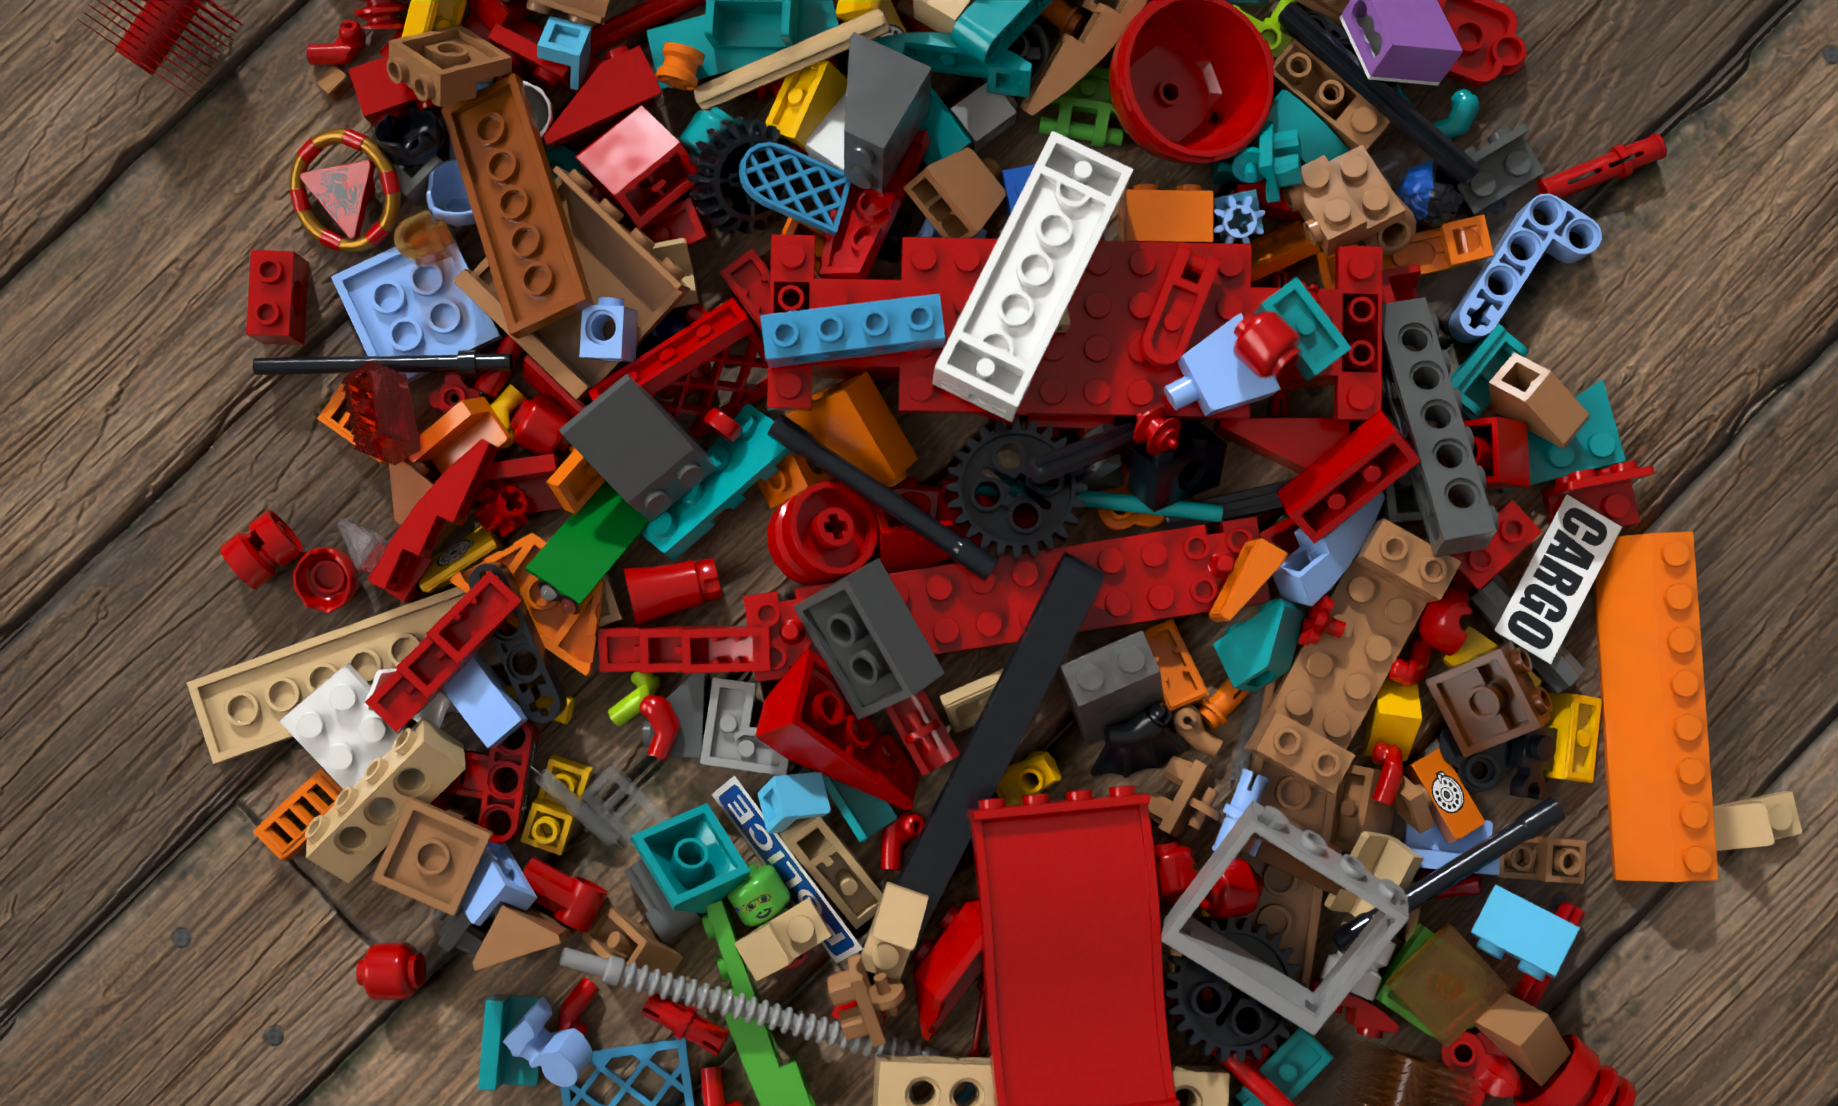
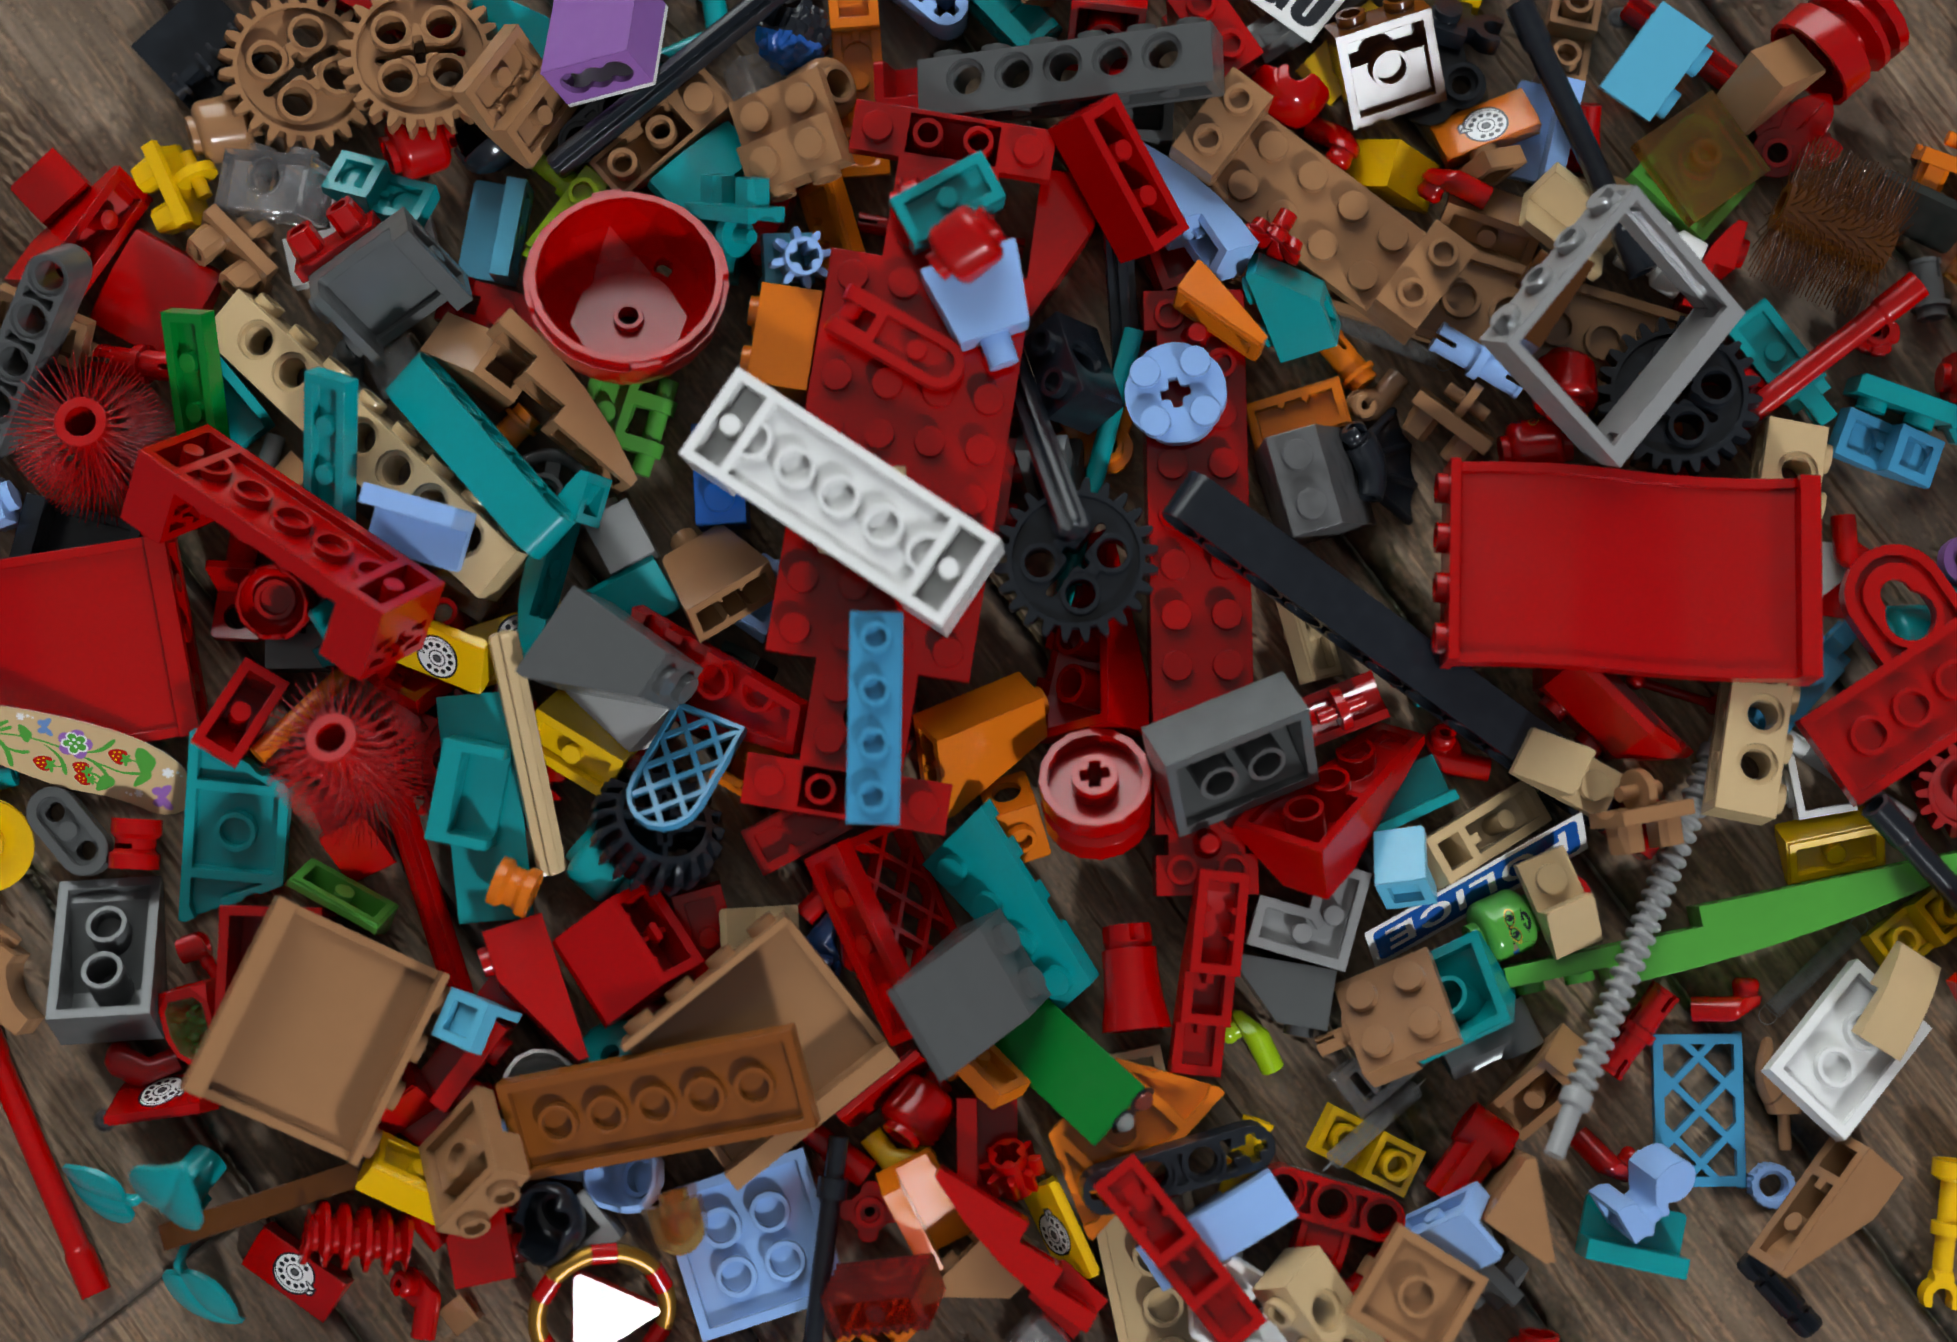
camera: 80 degrees left, 0 degrees up
(624, 341) = (839, 1029): light blue brick -> none
(664, 722) = (1292, 1007): red arm -> none
(666, 810) = (1393, 1018): none -> medium nougat plate
(721, 424) = (949, 896): red piece -> none
(806, 445) = (1140, 633): black piece -> none
(1019, 782) = (1407, 594): yellow plate -> none
(1157, 431) = (1037, 386): red wheel -> none
(1181, 530) = (1192, 369): none -> light blue plate

